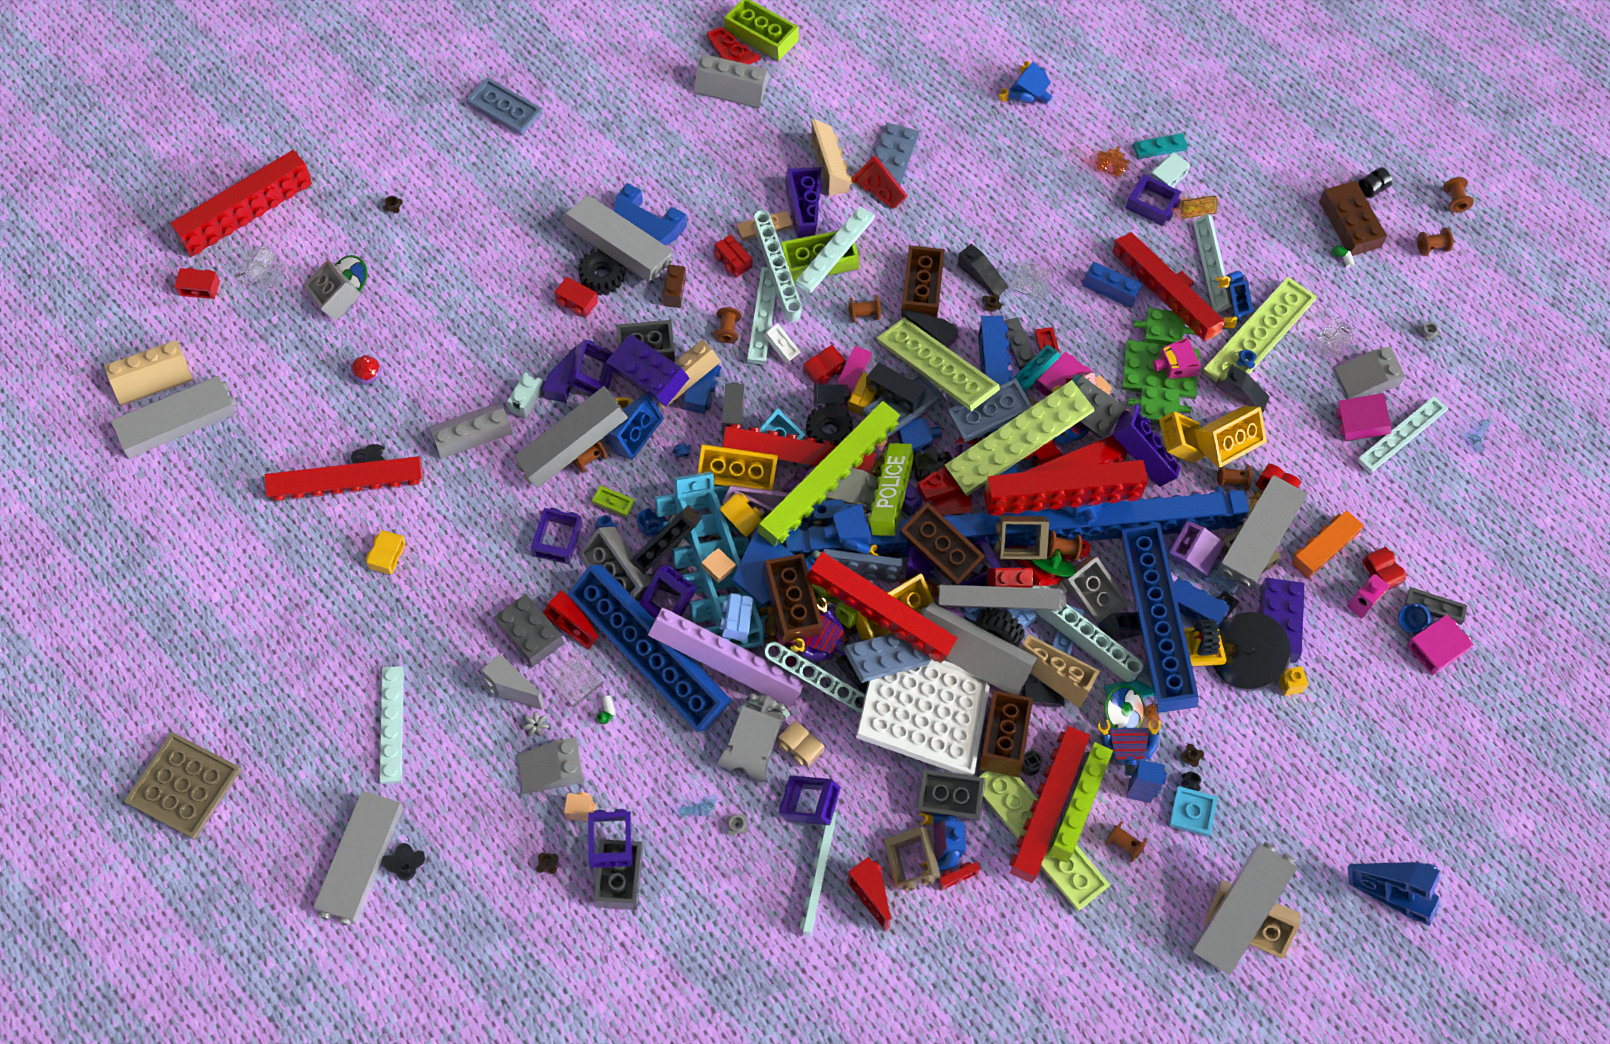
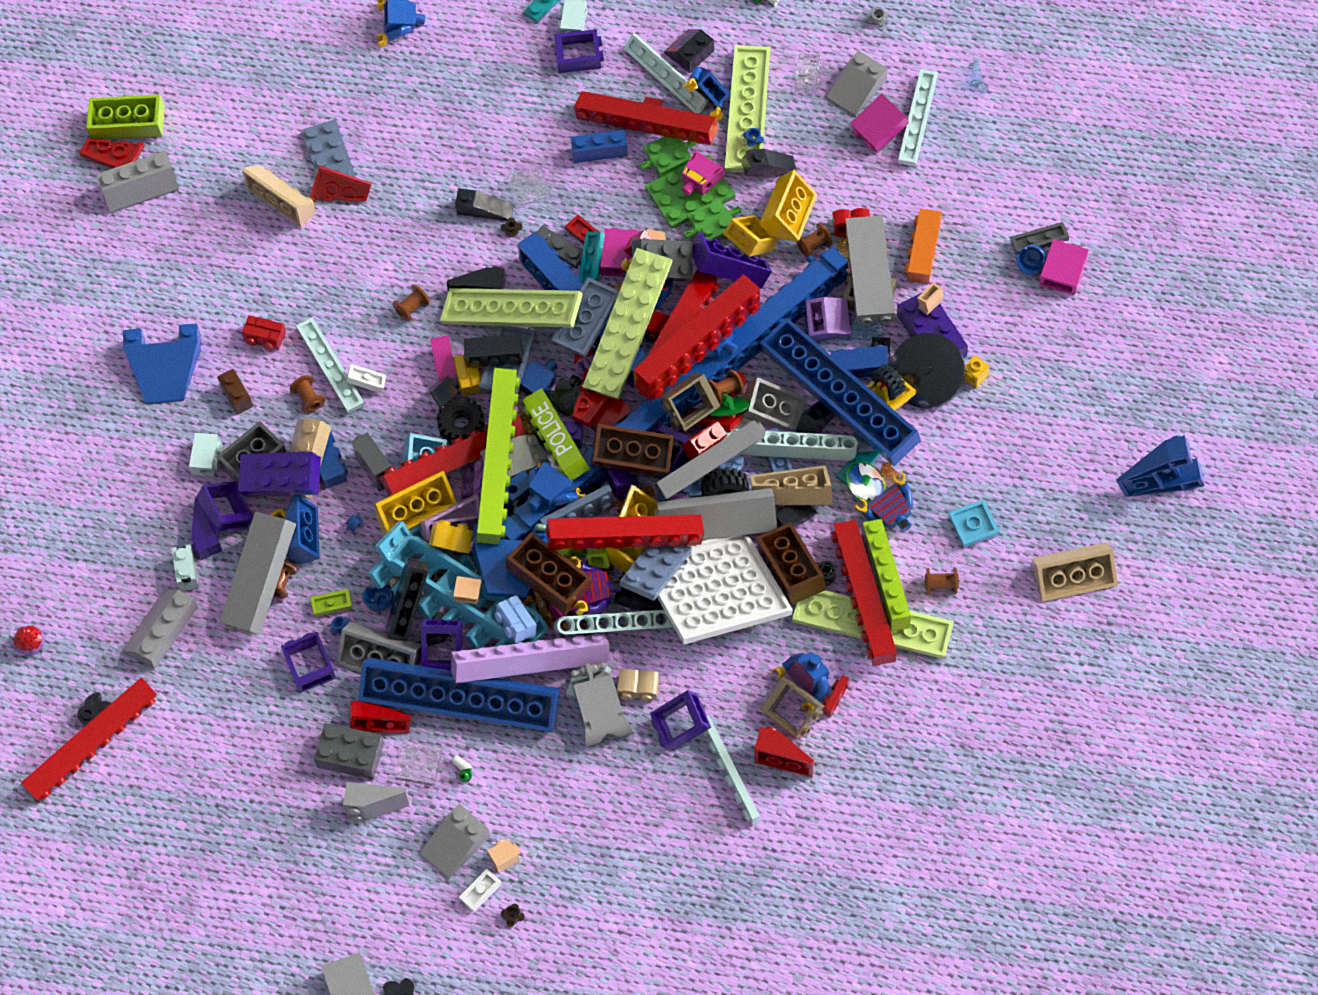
camera: 30 degrees left, 0 degrees up
(385, 552) = (176, 774): yellow brick -> none
(391, 725) = (298, 903): light aqua plate -> none
(535, 728) = (418, 818): light grey plant -> none
(538, 822) = (480, 890): none -> white plate
(576, 297) = (158, 457): red brick -> none
(597, 261) = (156, 410): black tyre -> none
(609, 859) = (565, 871): dark purple window -> none
(611, 315) = (204, 453): none -> light aqua brick
(618, 238) = (157, 382): light grey brick -> none
(619, 885) = (577, 881): dark grey brick -> none
(700, 809) = (598, 790): clear light blue piece -> none
(740, 819) = (637, 774): light grey plate -> none
(764, 227) = (314, 322): light aqua beam -> none
(780, 221) = (268, 289): light nougat plate -> none
(803, 251) = (338, 282): lime brick -> none
(804, 198) = (286, 244): dark purple wedge -> none
(824, 365) = (416, 372): red brick -> none
(835, 249) = (350, 269): light aqua plate -> none
(923, 280) = (441, 246): reddish brown brick -> none
(951, 794) = (785, 638): dark grey brick -> none
(1113, 158) = (518, 37): clear orange hips -> none
(1146, 781) = (924, 524): blue brick -> none
(1186, 756) = (946, 486): dark brown plate -> none
(1191, 781) = (955, 501): black plate -> none
(1198, 206) = (619, 32): clear yellow tile -> none
(1244, 907) = (1064, 564): light grey brick -> none
(1249, 257) = (691, 49): none -> black slope
(1297, 591) = (930, 298): none -> light nougat piece
(1372, 592) = (984, 261): dark pink torso -> none
(1384, 565) = (981, 236): red brick -> none

